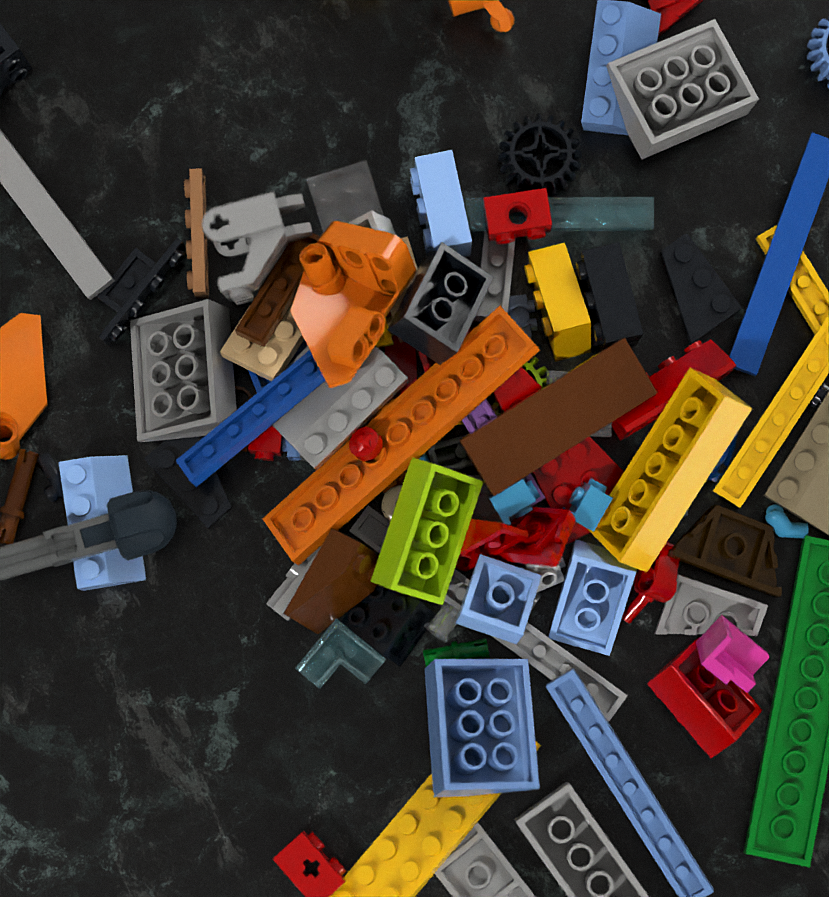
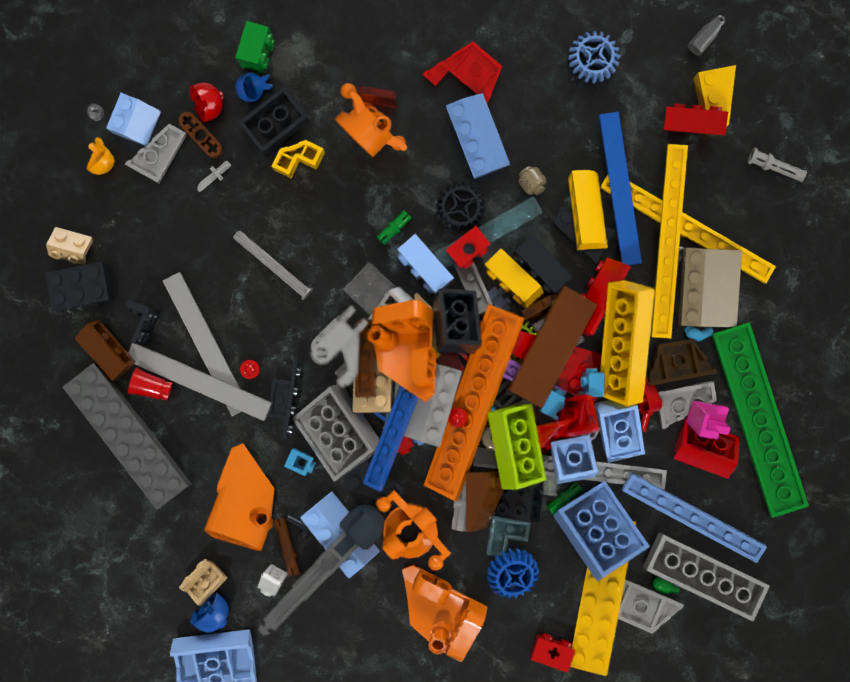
camera: 30 degrees left, 5 degrees up
(72, 129) = (200, 332): none -> light grey tile
(97, 379) = (293, 462): none -> dark azure brick
(111, 219) = (250, 369): none -> red tile
(182, 717) = (442, 613): none -> orange panel
(197, 247) = (296, 345): medium nougat plate -> none
(219, 595) = (403, 516): none -> orange piece
(228, 92) = (273, 265): none -> light grey axle
(296, 727) = (522, 573): none -> blue gear
(428, 133) = (393, 227): none -> green pin
(530, 865) = (664, 586): none -> green cylinder
(568, 357) = (539, 309): none -> reddish brown piece
(663, 174) = (532, 180): none -> dark tan head
(680, 88) = (516, 129): light grey slope -> none
(720, 257) = (587, 210): none -> yellow brick

